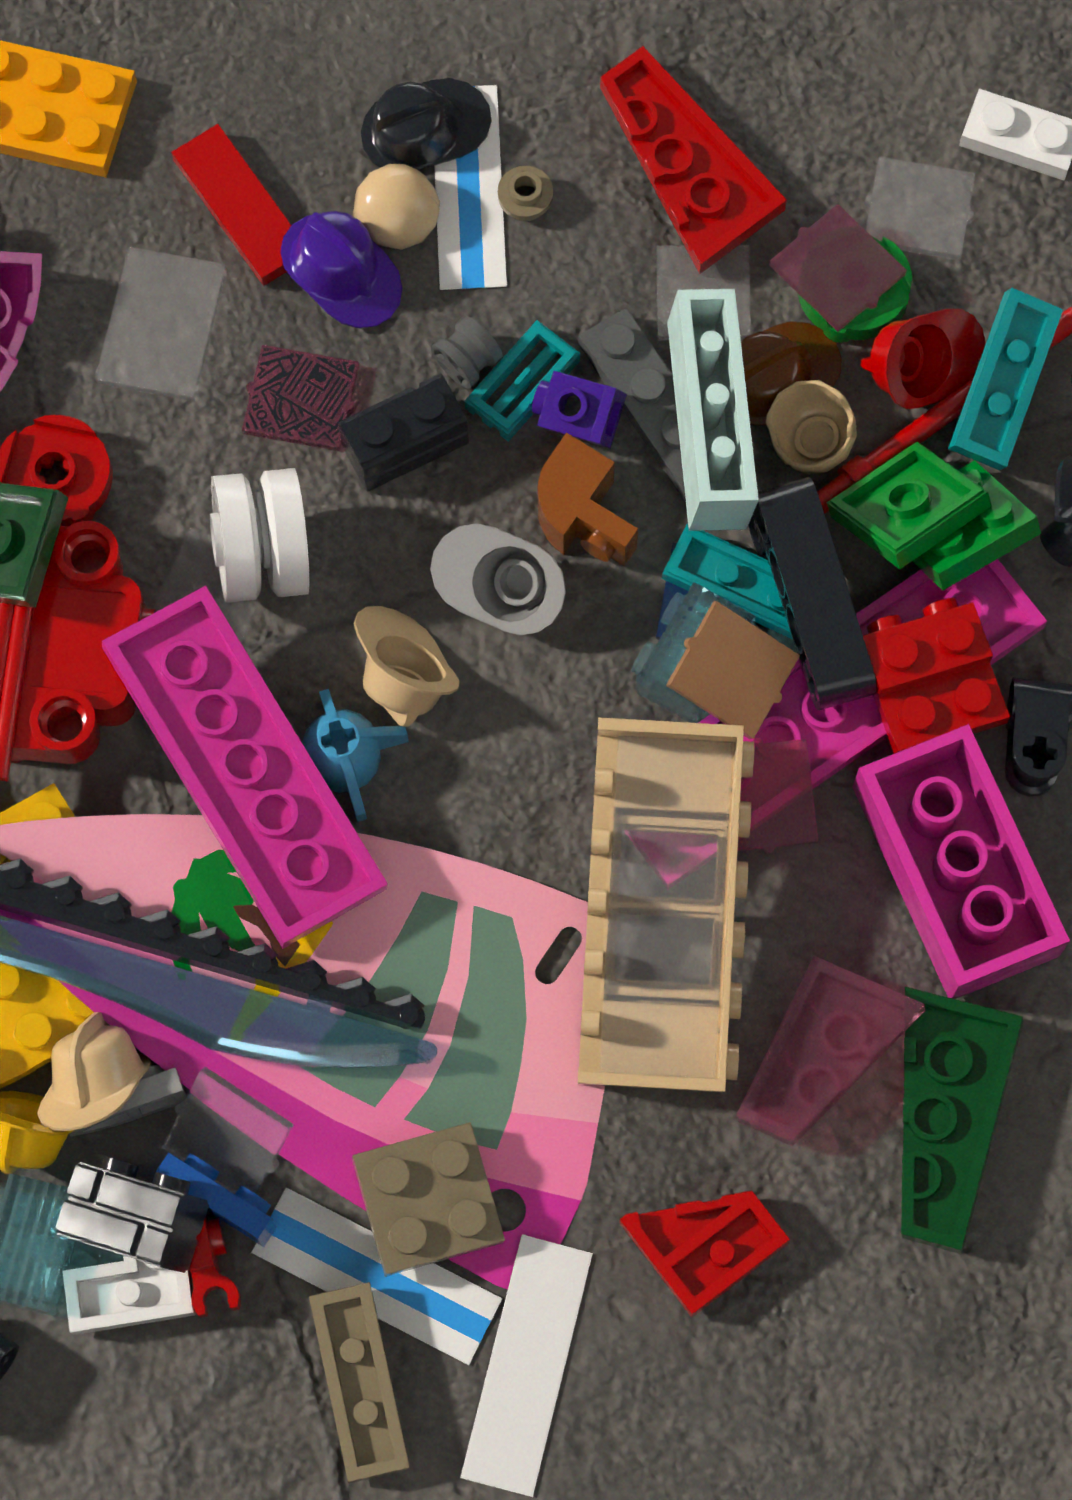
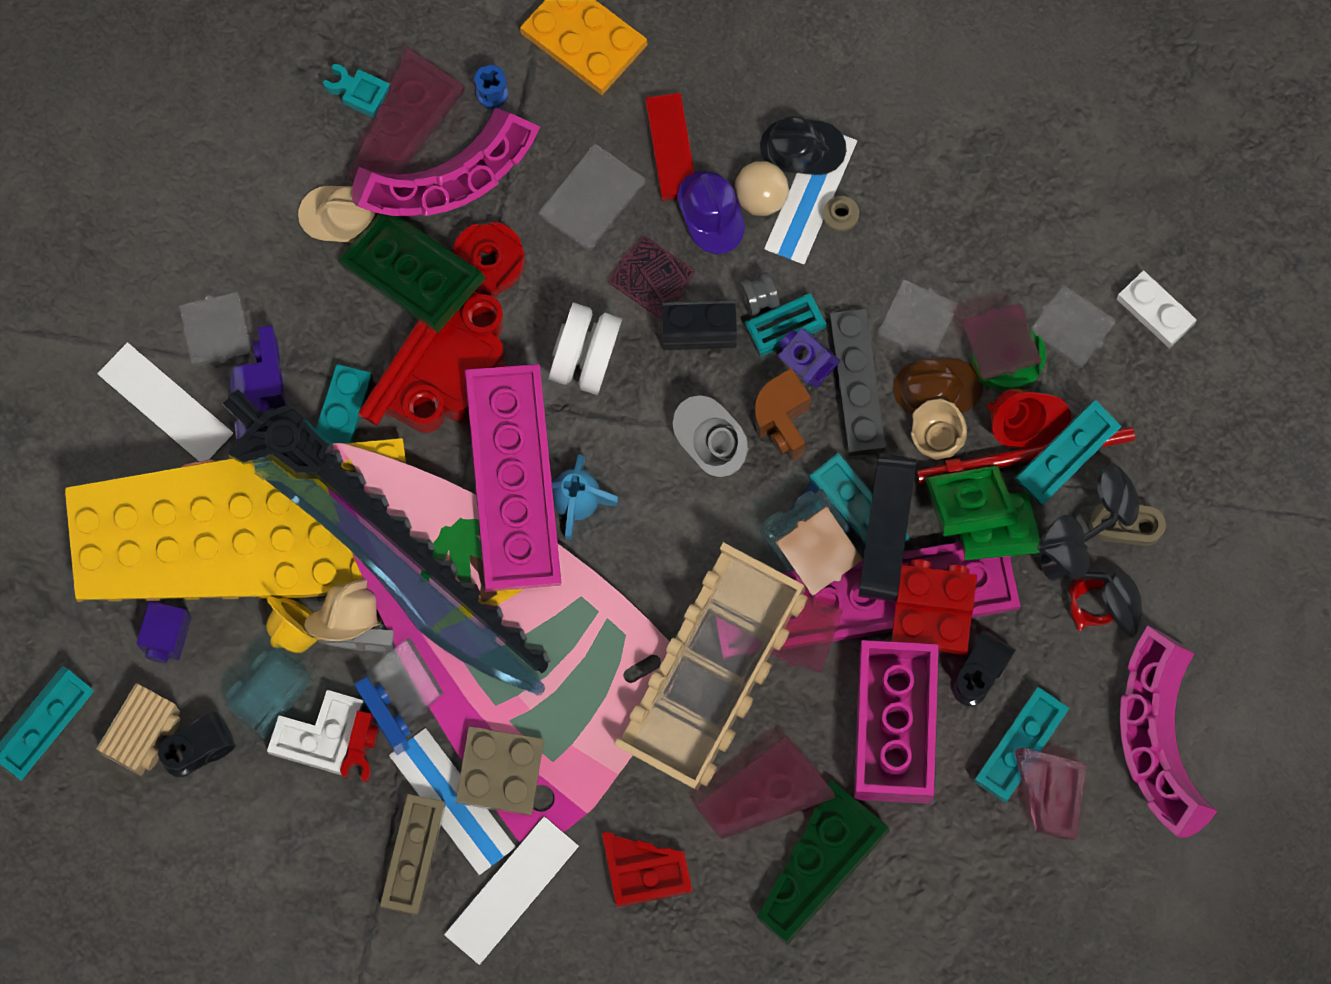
camera: 25 degrees right, 0 degrees up
(133, 1216) = (330, 702): brick -> none
(402, 664) = (633, 460): tan piece -> none
(694, 167) = (948, 244): red wing -> none
(712, 410) = (881, 393): light aqua brick -> none

